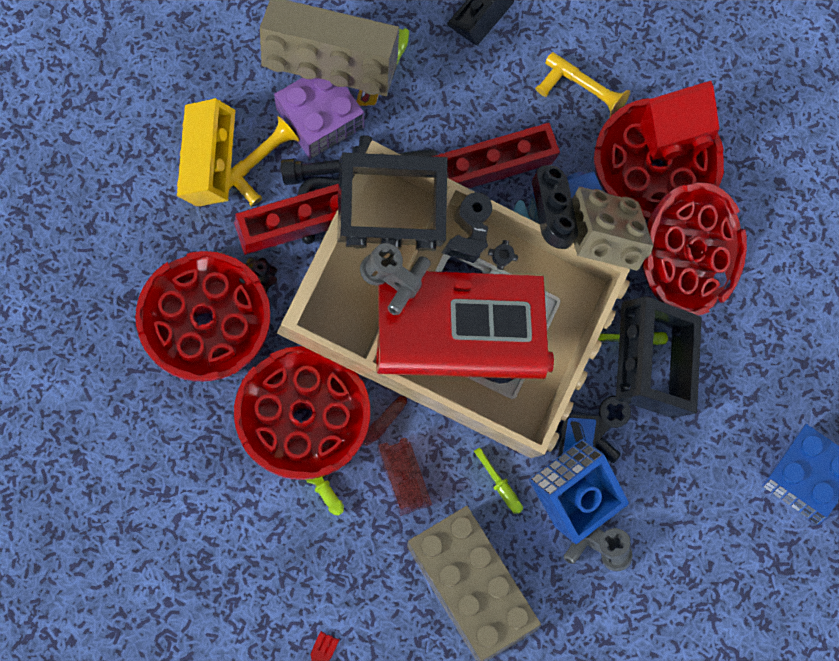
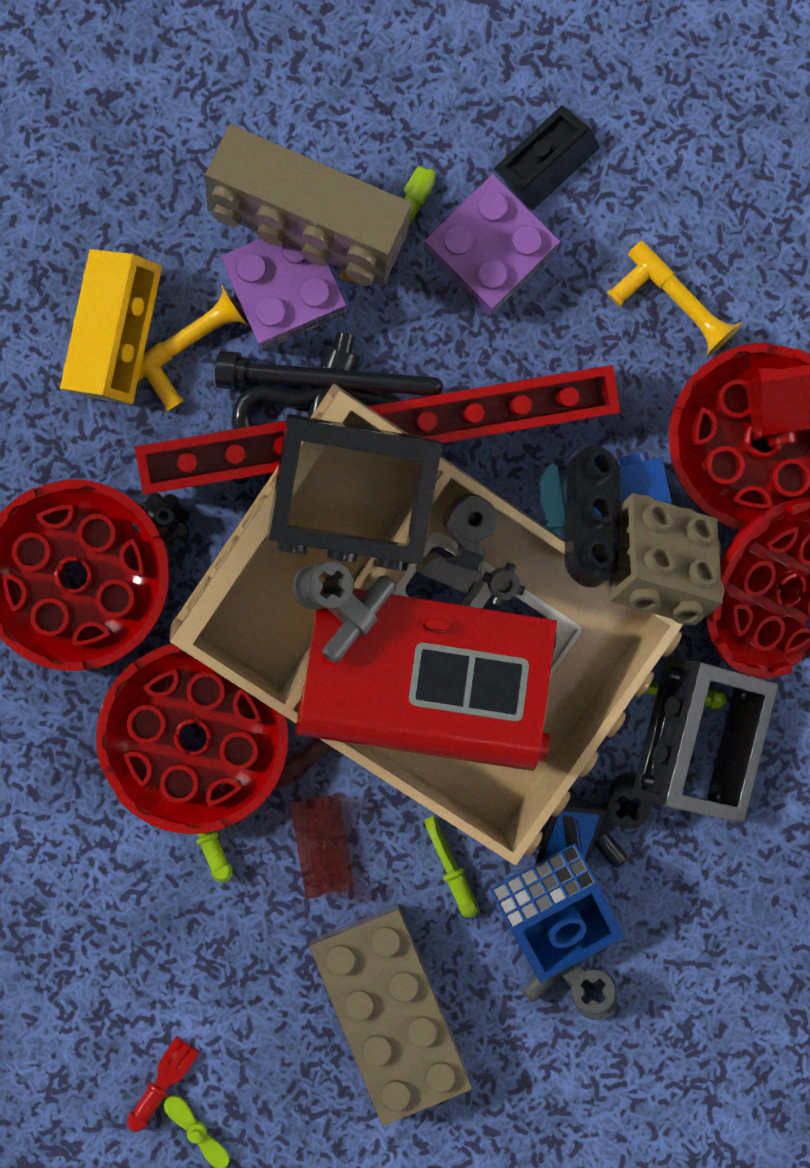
camera: 10 degrees right, 15 degrees up
(454, 66) = (491, 245): none -> medium lavender brick

